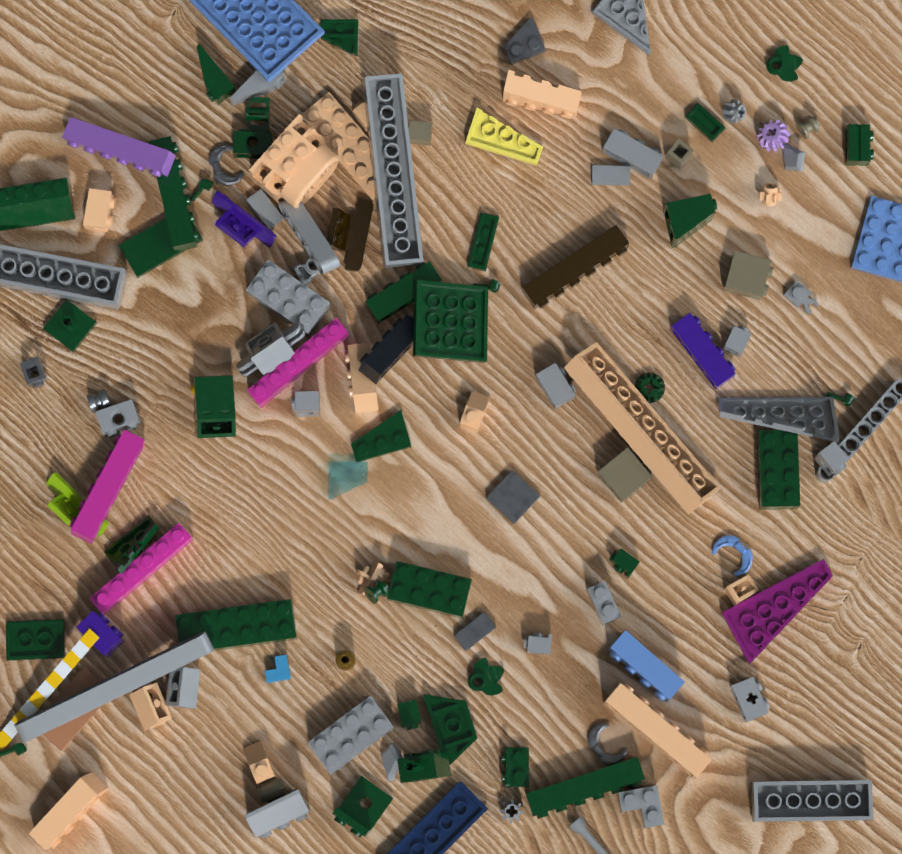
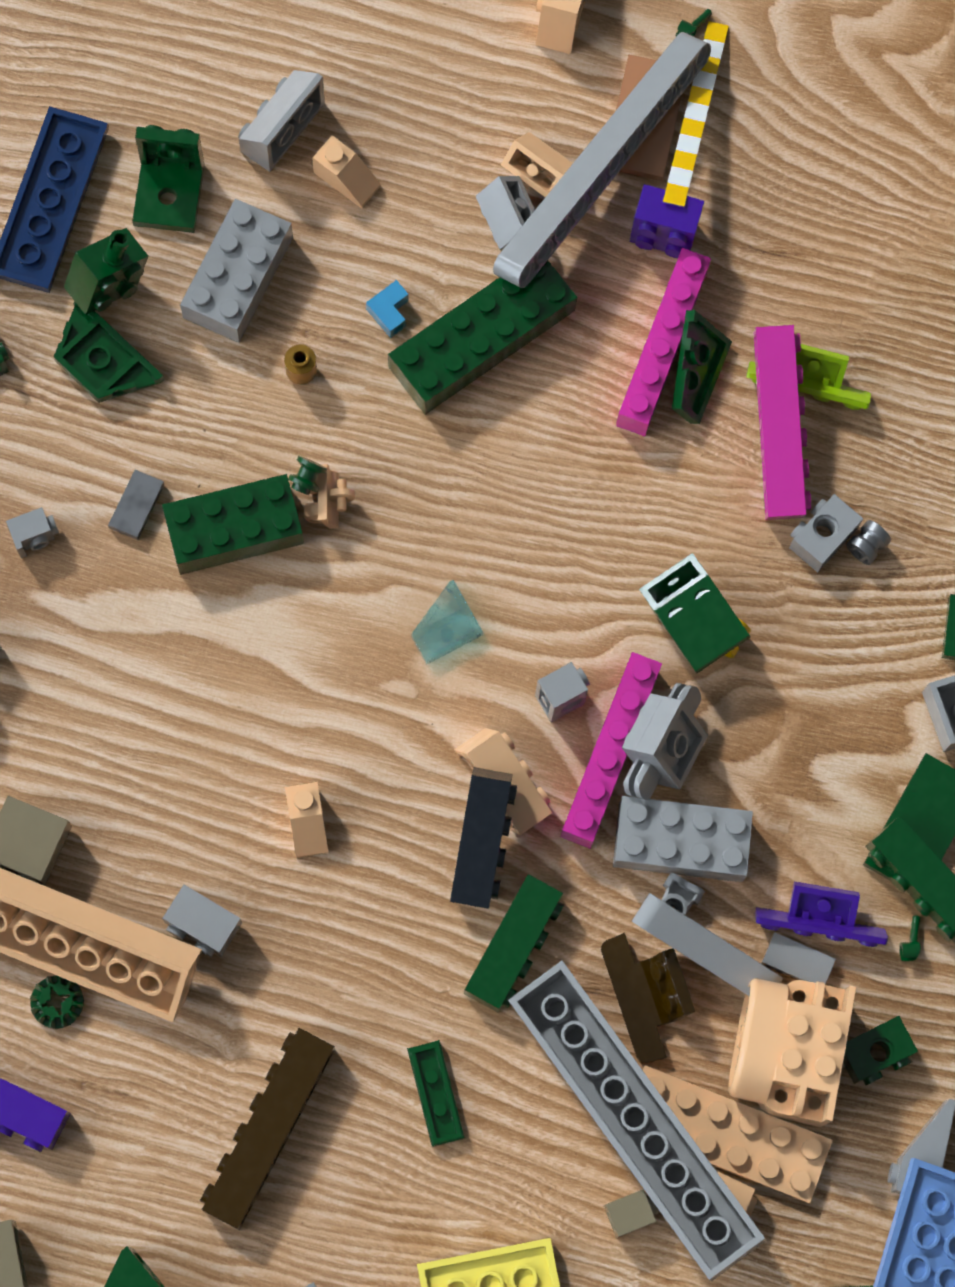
camera: 145 degrees right, 5 degrees down
(35, 640) = (752, 179): dark green tile -> none
(214, 160) = (922, 998): flat silver piece -> none
(266, 111) = (897, 1105): dark green piece -> none
(271, 790) = (307, 145): dark tan brick -> none
(383, 439) = (421, 708): dark green wing -> none
(389, 759) = (161, 268): light grey piece -> none
(409, 714) = (169, 341): dark green brick -> none
(450, 321) = (415, 931): dark green plate -> none
(489, 677) = (82, 452): dark green plate -> none
(493, 286) = (382, 1028): dark green hand -> none
(513, 497) = (181, 725): flat silver tile -> none

